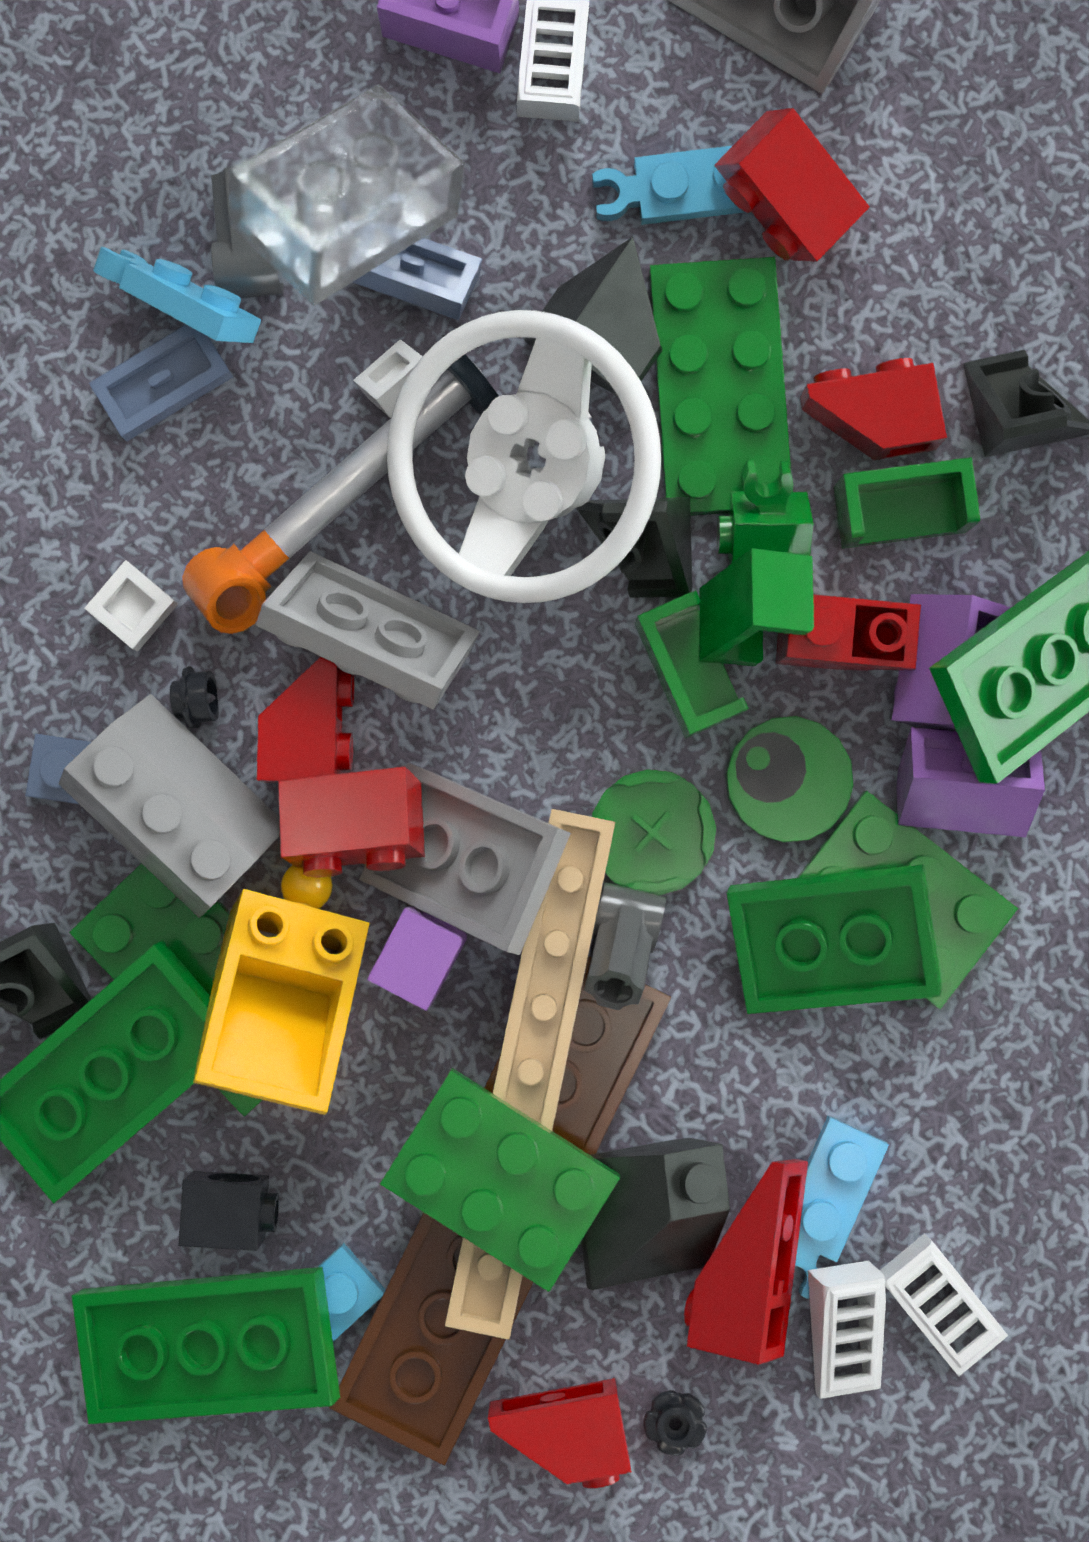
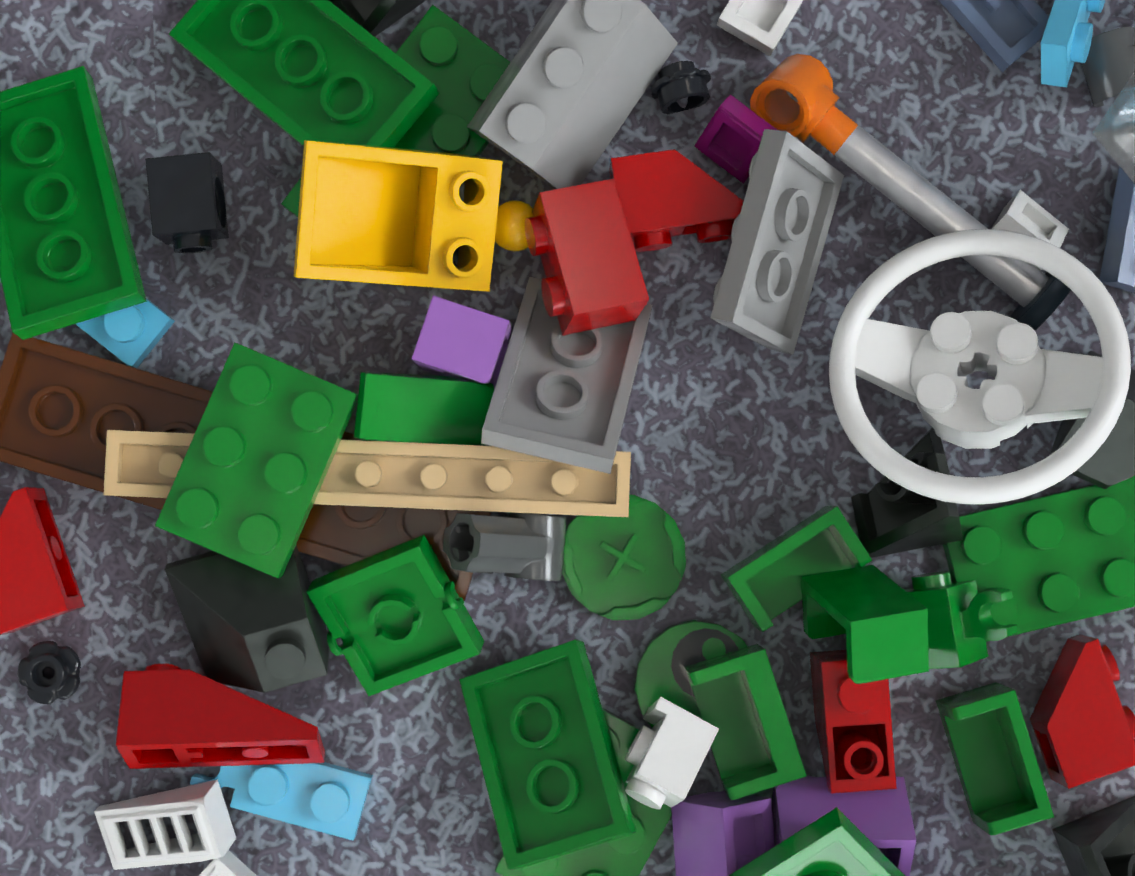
camera: 70 degrees right, 0 degrees up
(254, 654) = (733, 137): none -> magenta tile
(475, 1008) = (421, 408): none -> green slope
(675, 1067) = (395, 616): none -> green plate
(832, 740) = (754, 733): none -> green panel
(854, 821) = (667, 754): none -> white brick

